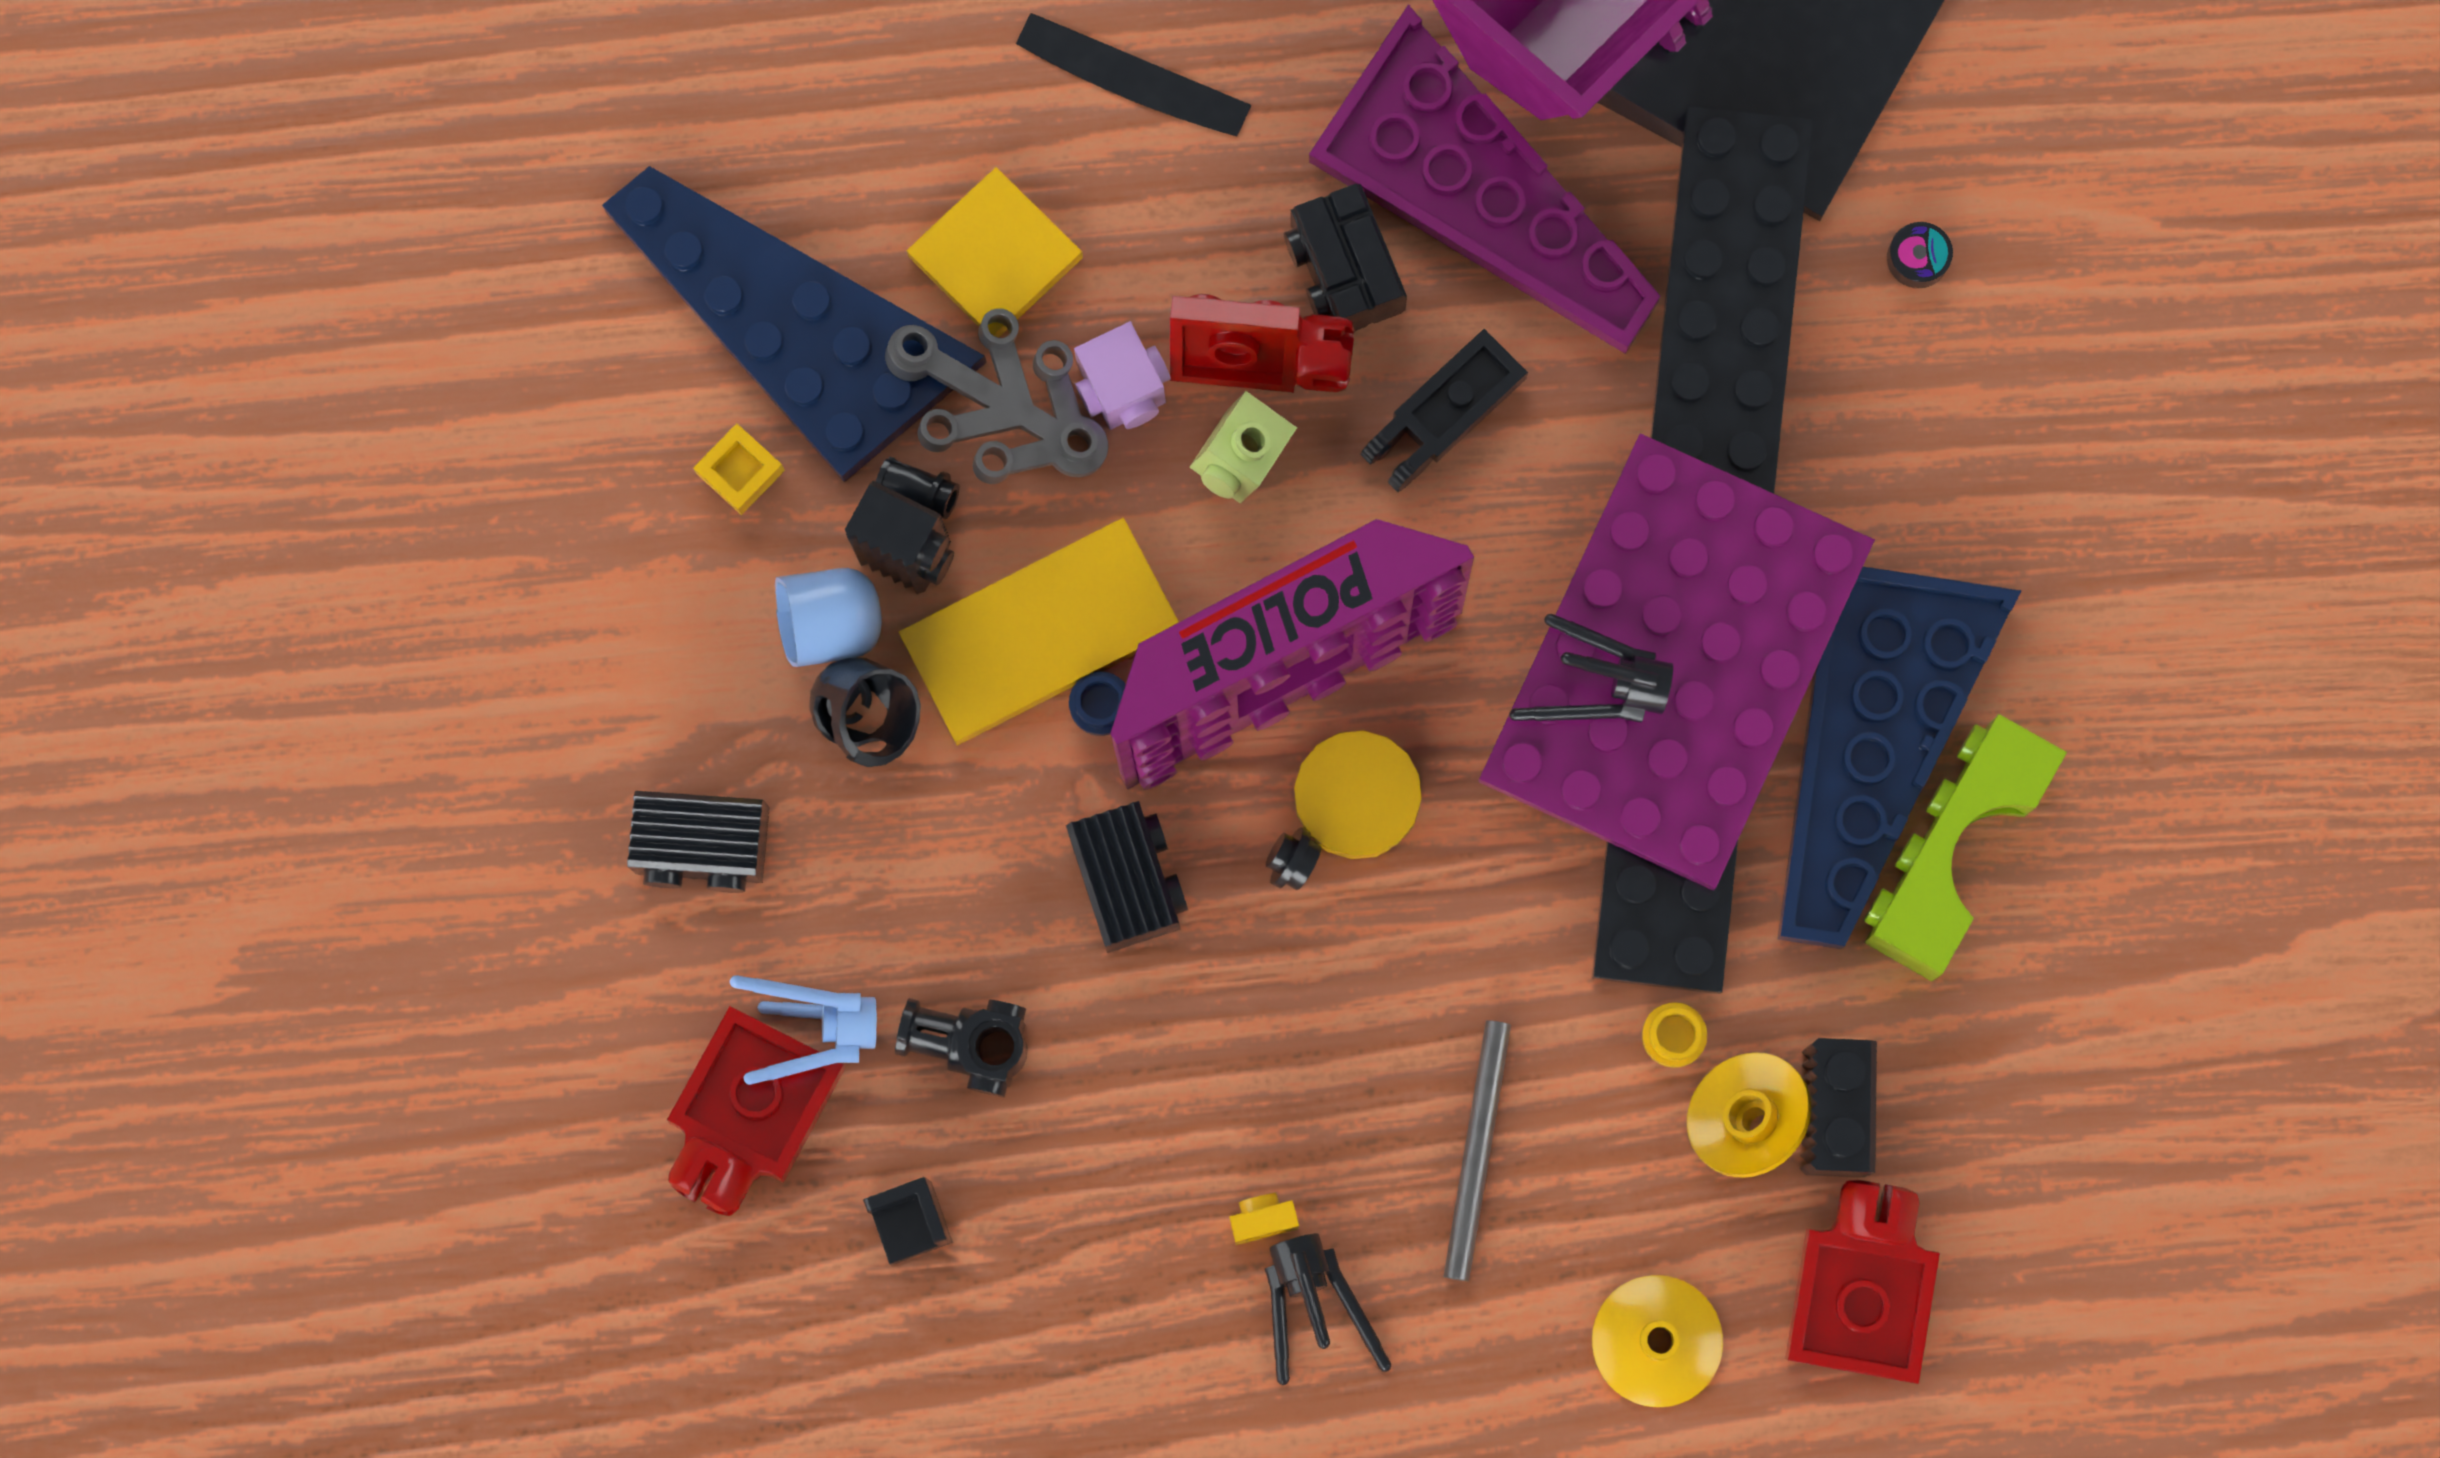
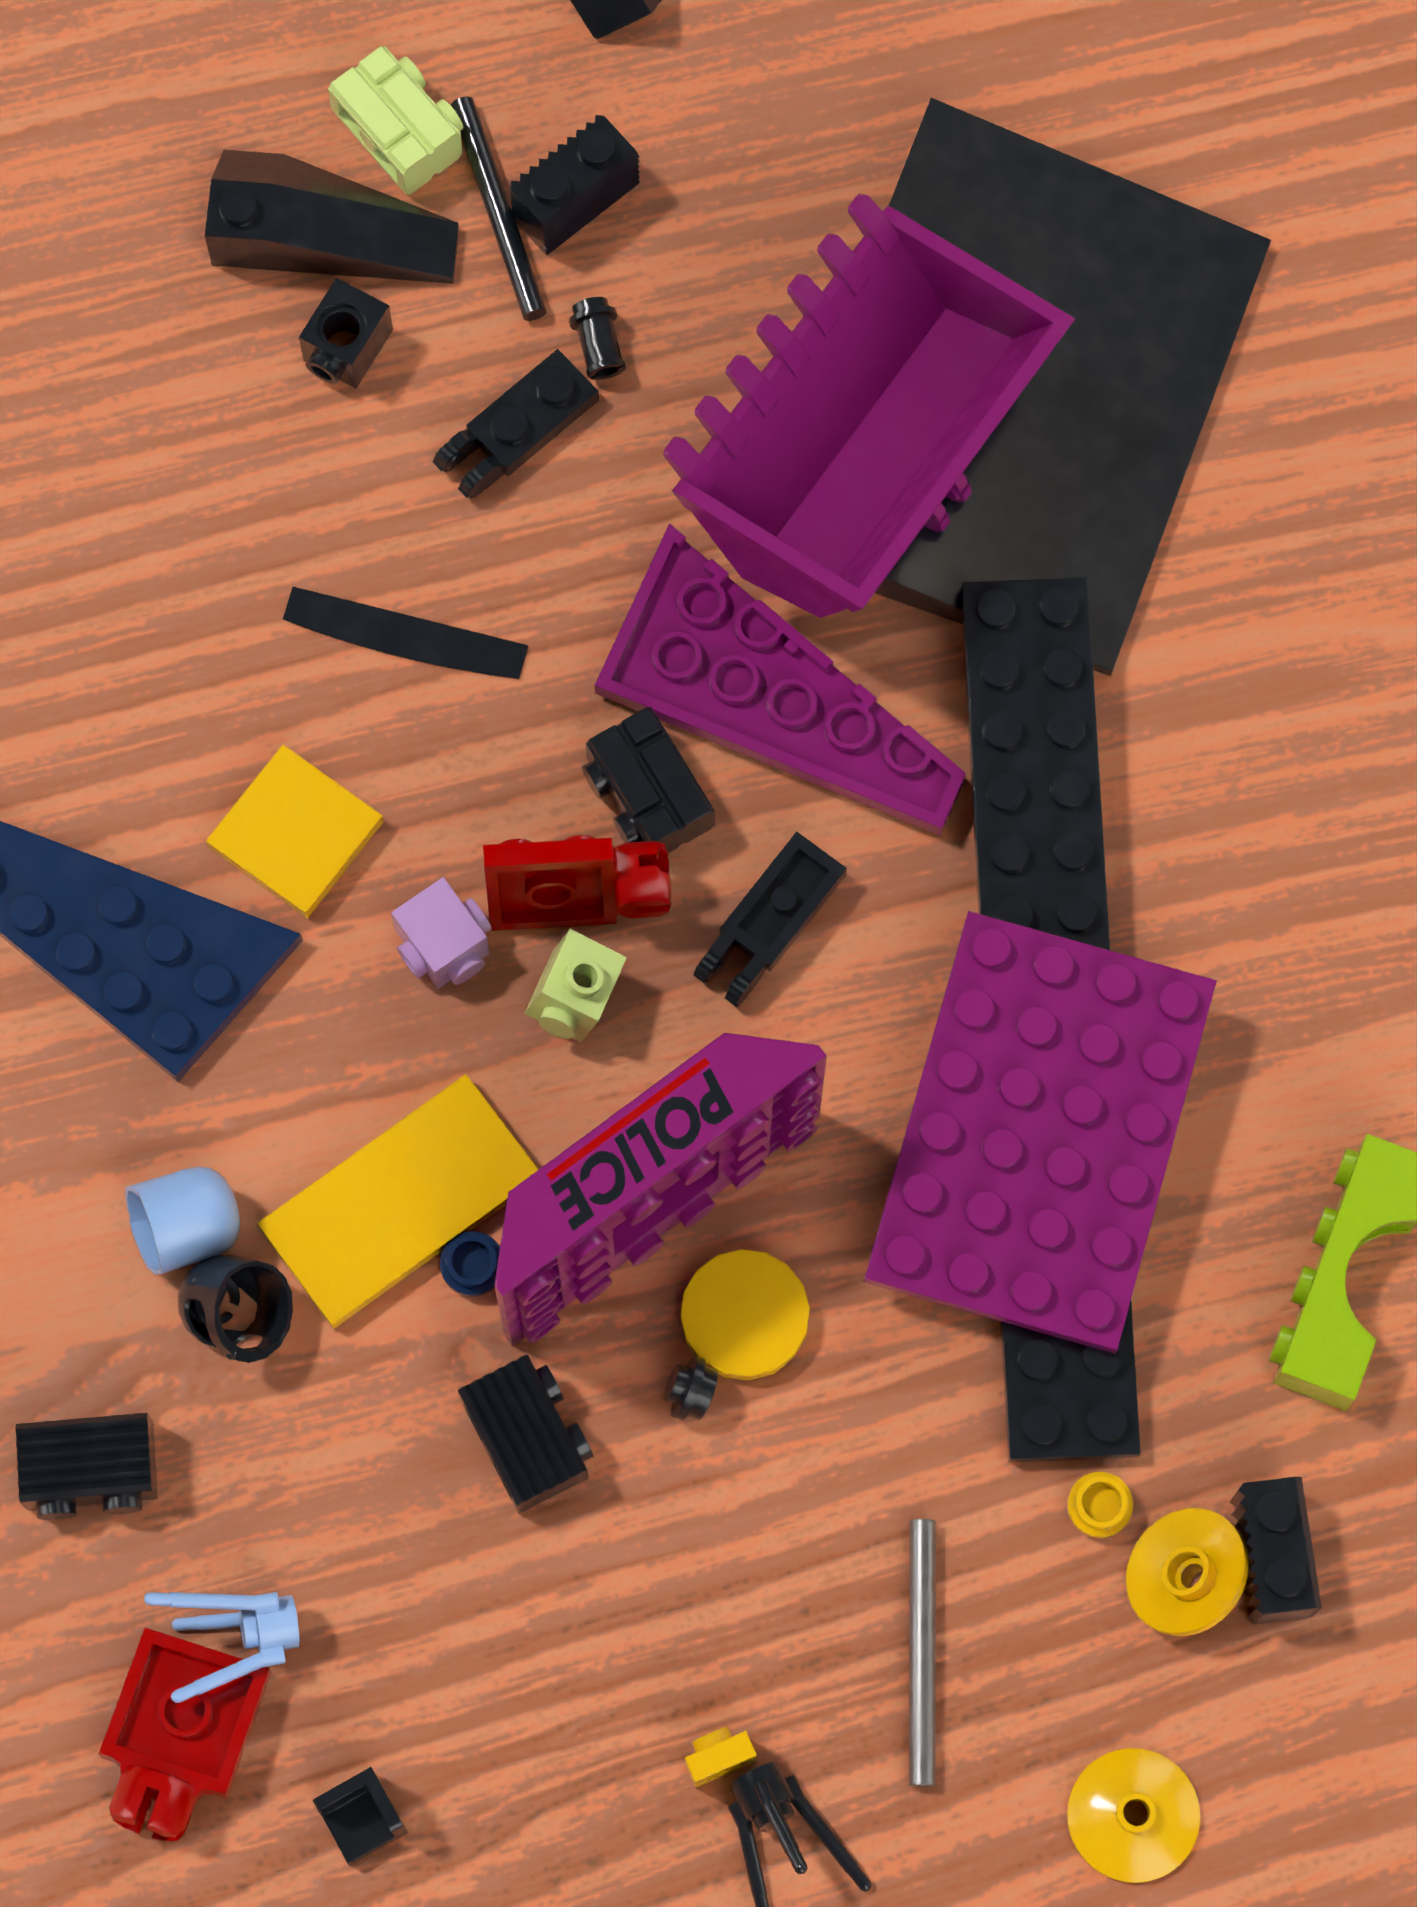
camera: 15 degrees left, 5 degrees down
(739, 469) = (70, 1084): yellow plate -> none
(899, 538) = (246, 1128): black brick -> none
(920, 486) = (254, 1076): black pin -> none
(964, 1039) = (387, 1623): black connector -> none
(1005, 405) = (330, 980): flat silver plant -> none
(1637, 679) = (1005, 1153): black plant -> none
(1865, 1287) = (1331, 1726): red plate -> none
(1874, 733) = (1248, 1171): dark blue wing -> none
(1919, 254) = (1214, 694): tile -> none

